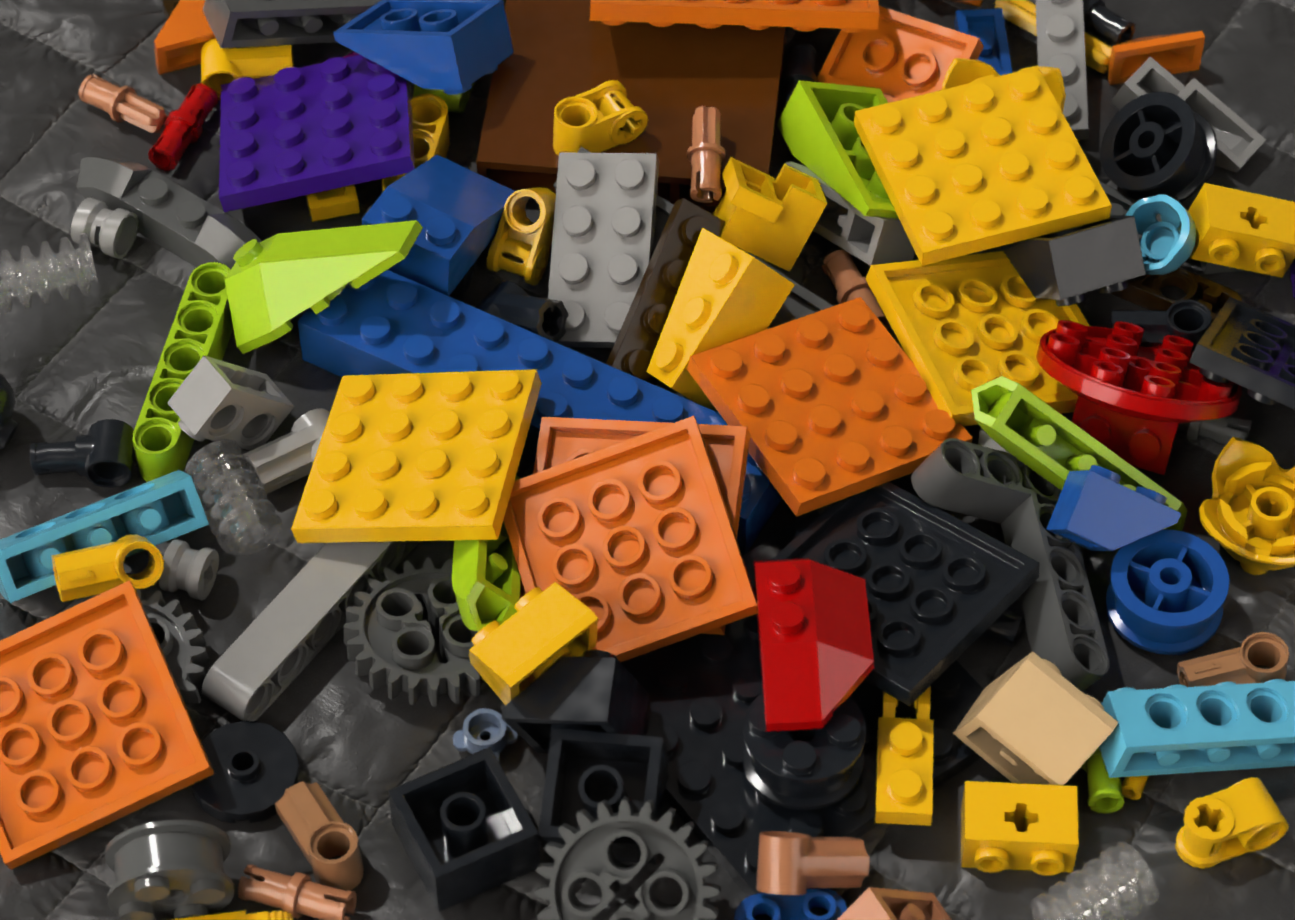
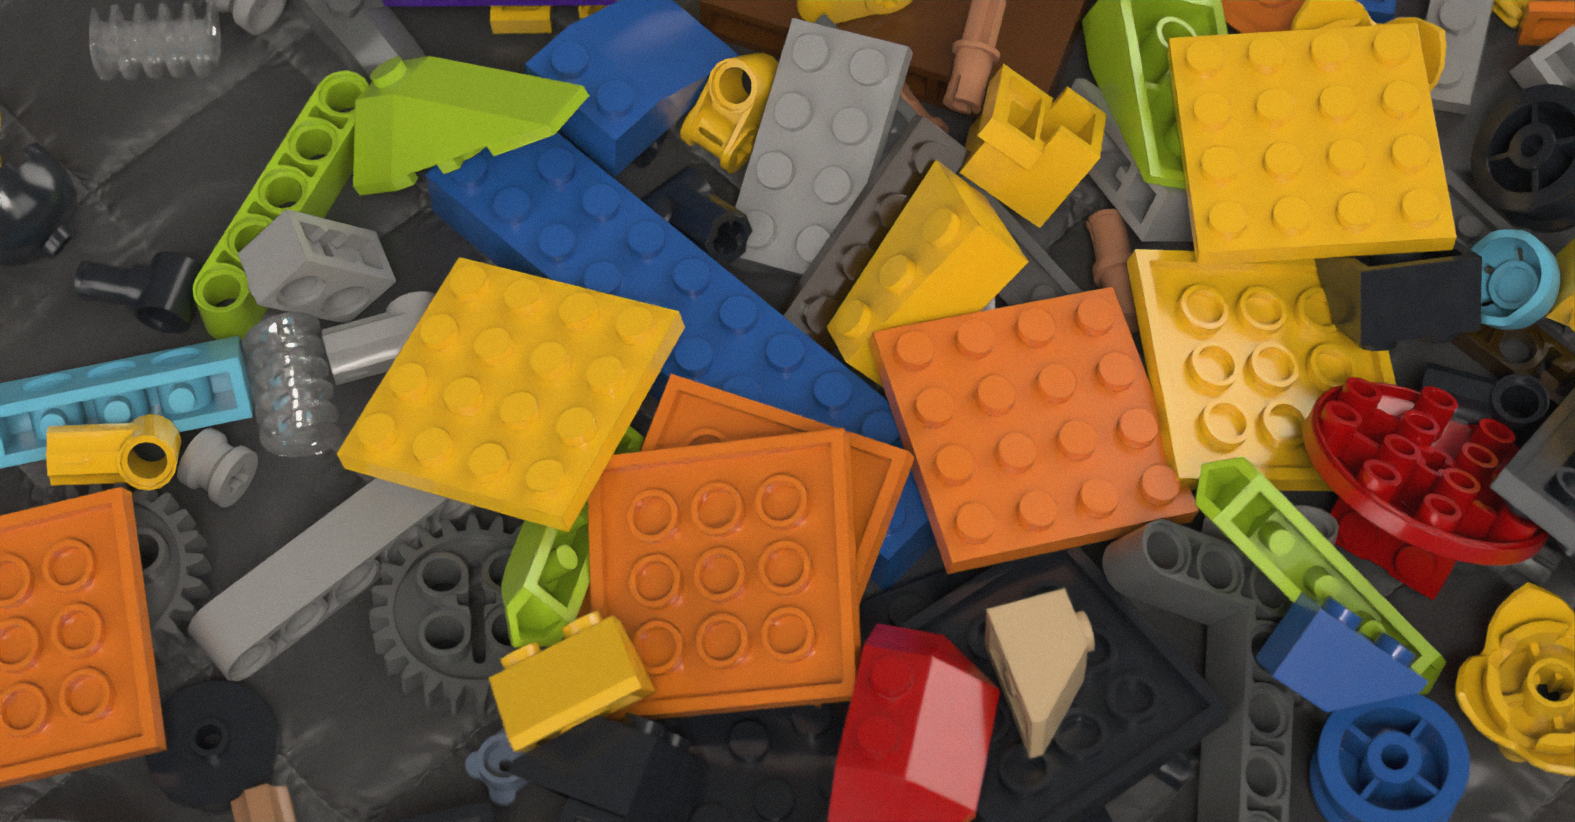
camera: 15 degrees right, 10 degrees up
(888, 553) = (1039, 661): none -> tan slope

